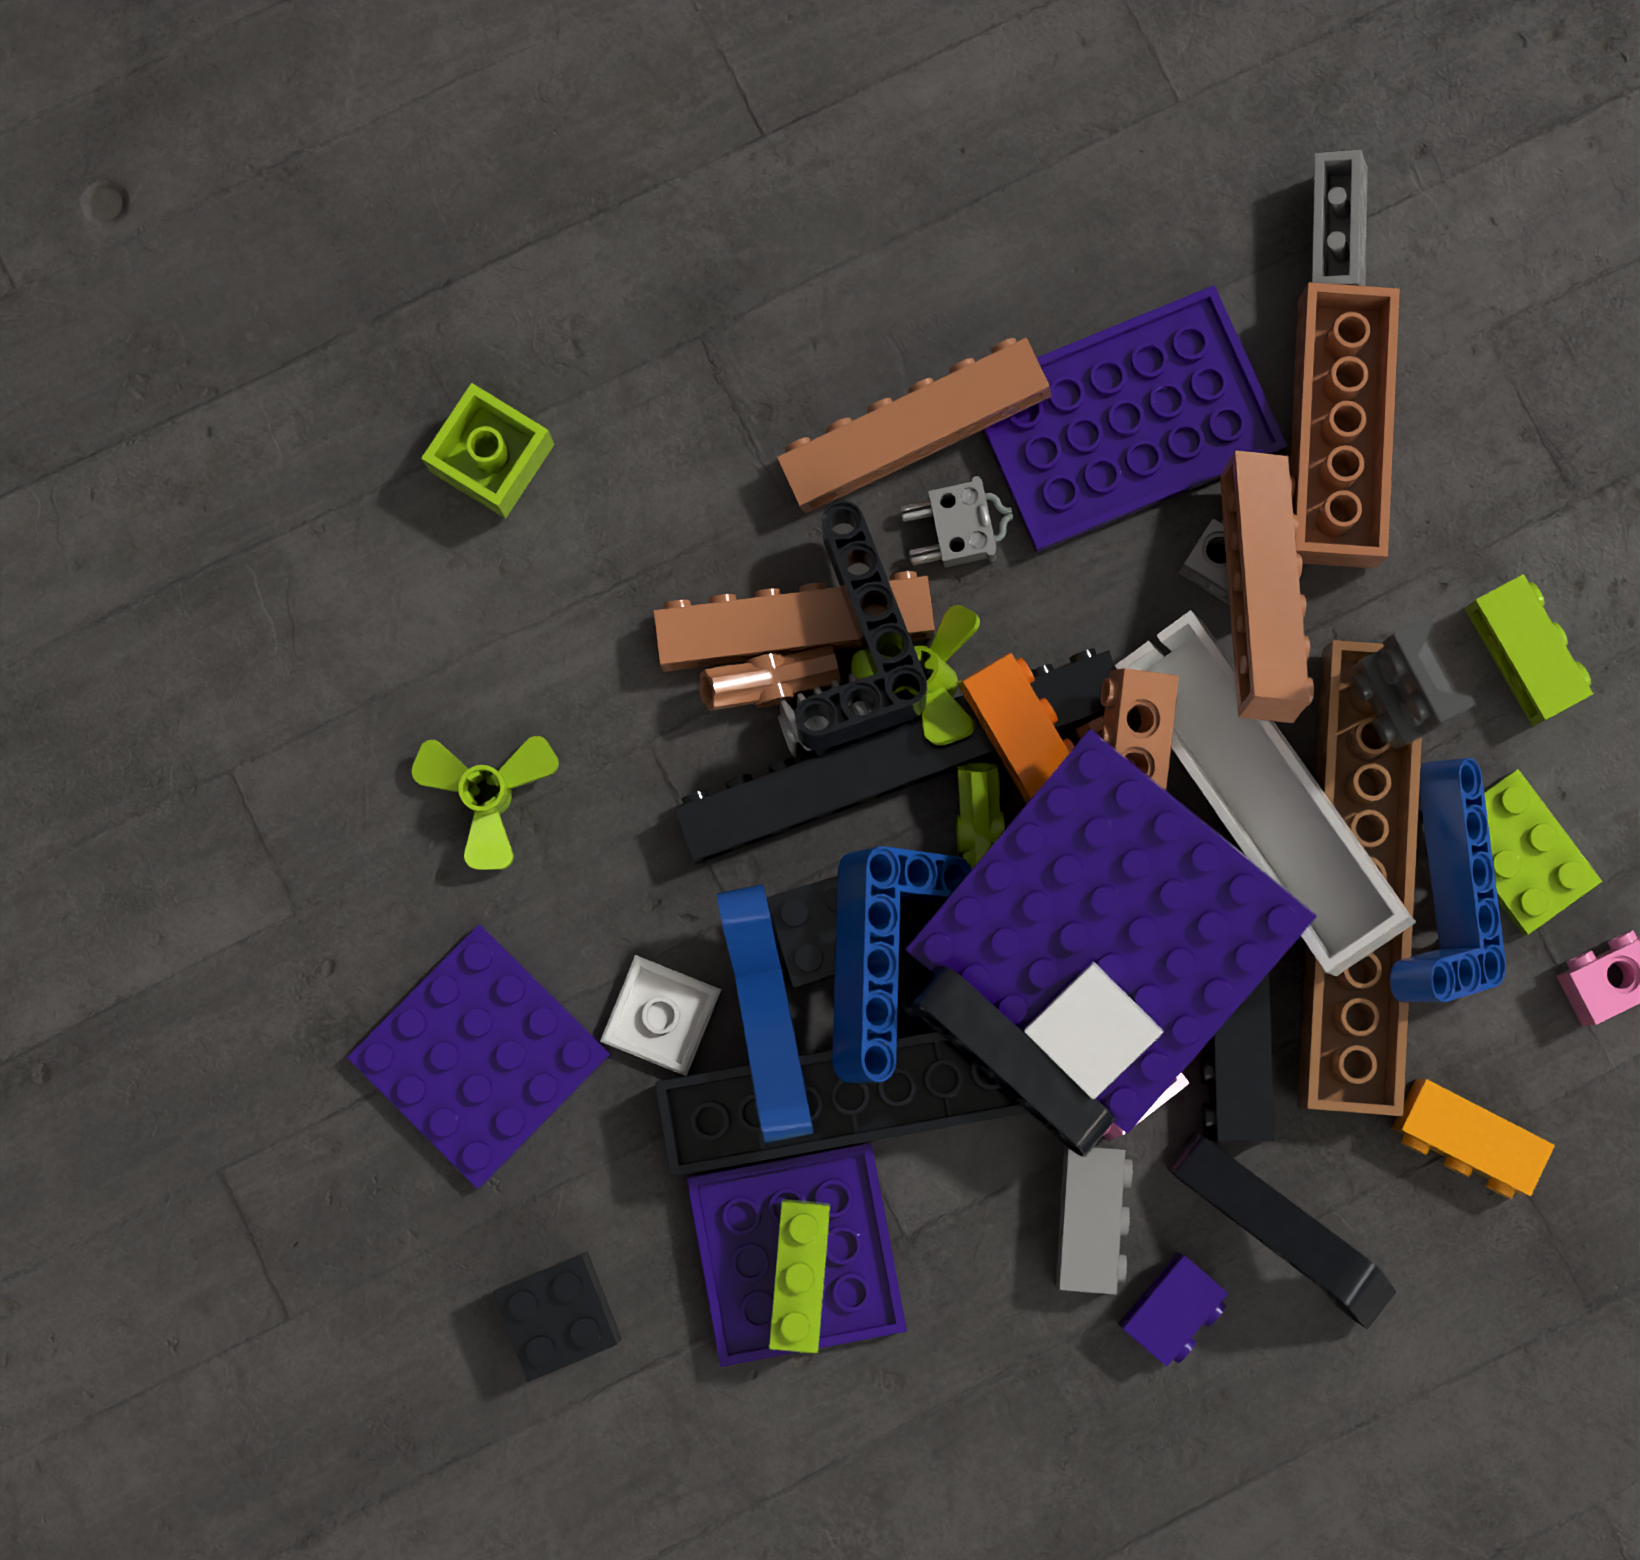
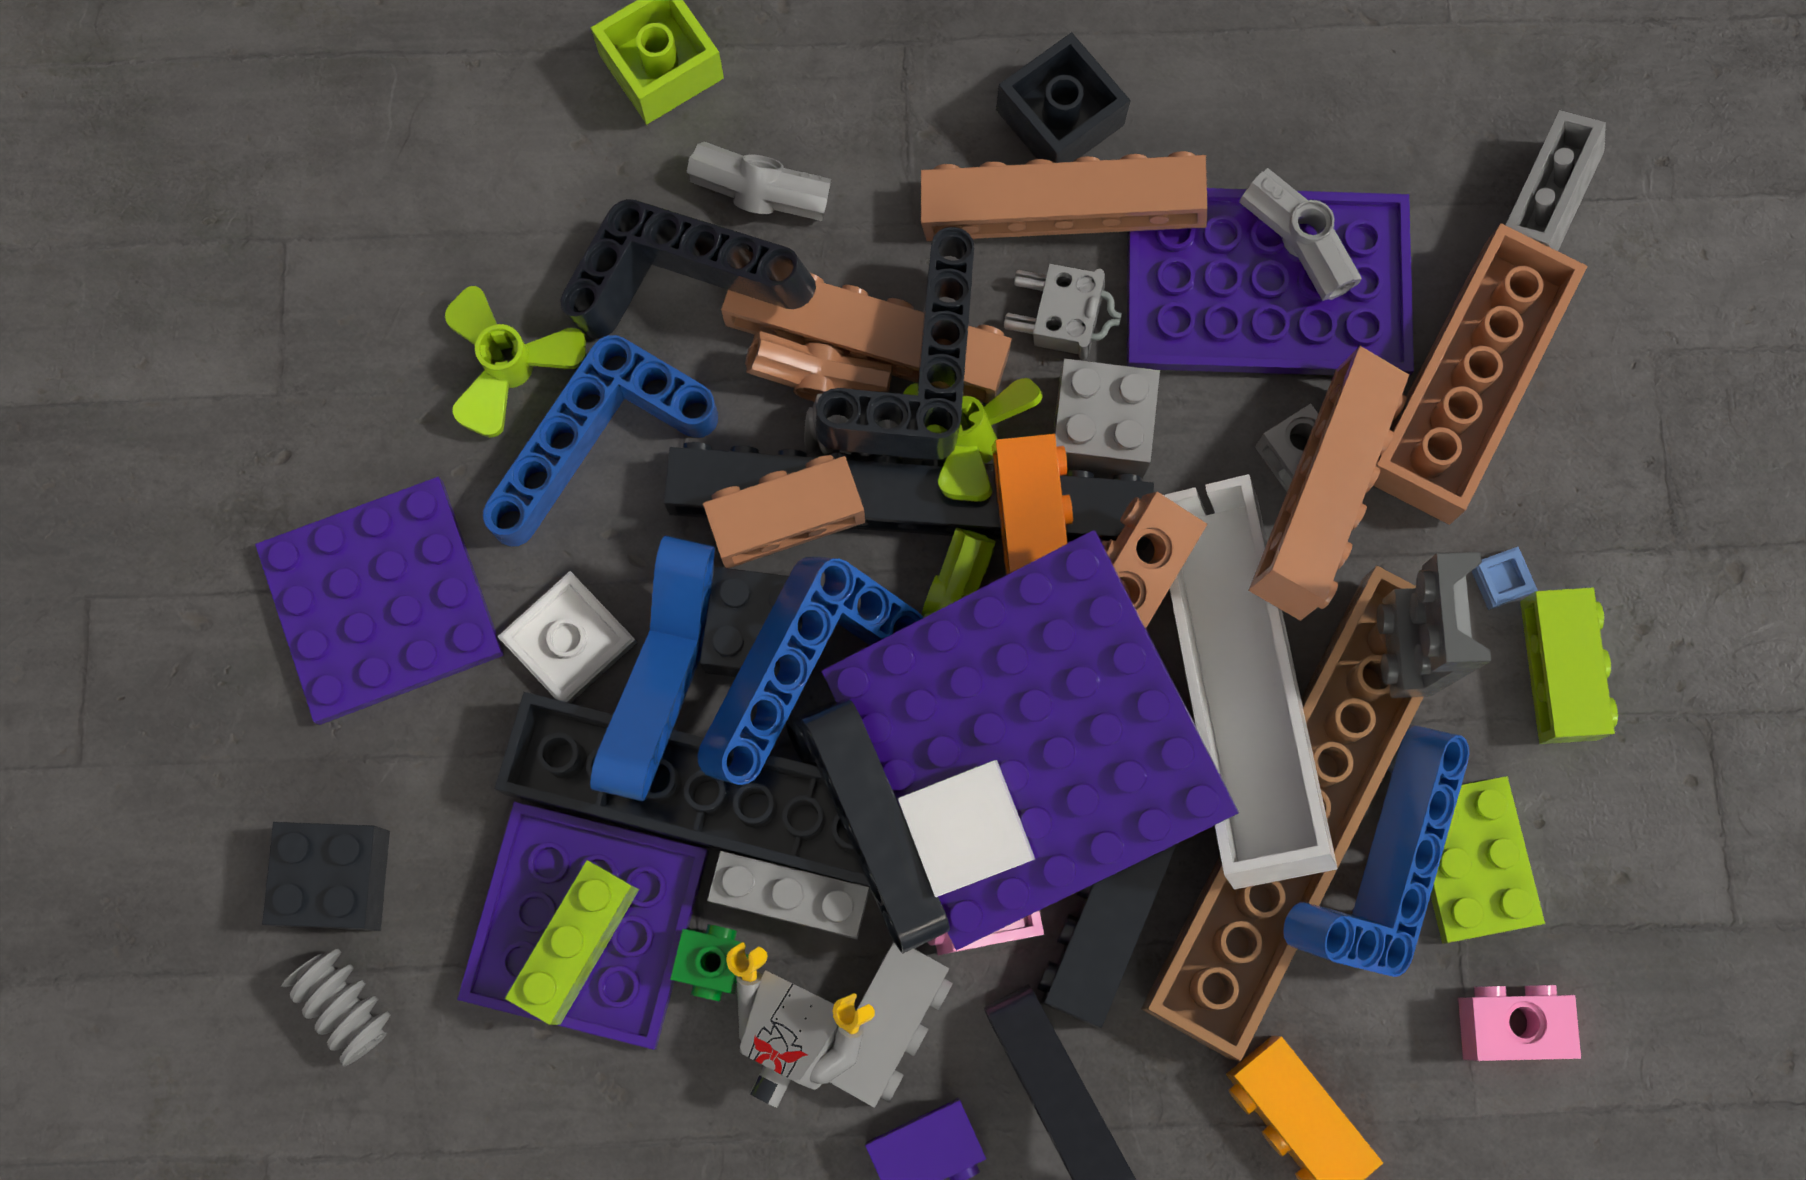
camera: 20 degrees right, 5 degrees down
(587, 820) = (587, 427): none -> blue beam
(604, 629) = (646, 235): none -> black beam
(622, 1418) = (337, 1006): none -> light grey piece
(635, 530) = (758, 182): none -> light grey piece
(804, 821) = (784, 510): none -> nougat brick
(873, 338) = (1062, 102): none -> black brick
(904, 1229) = (692, 959): none -> green brick
(961, 1149) = (788, 895): none -> light grey brick
(1019, 1262) = (792, 1029): none -> light grey torso
(1039, 608) = (1106, 416): none -> light grey brick
(1165, 380) = (1320, 254): none -> light grey piece
(1441, 595) = (1504, 578): none -> medium blue tile

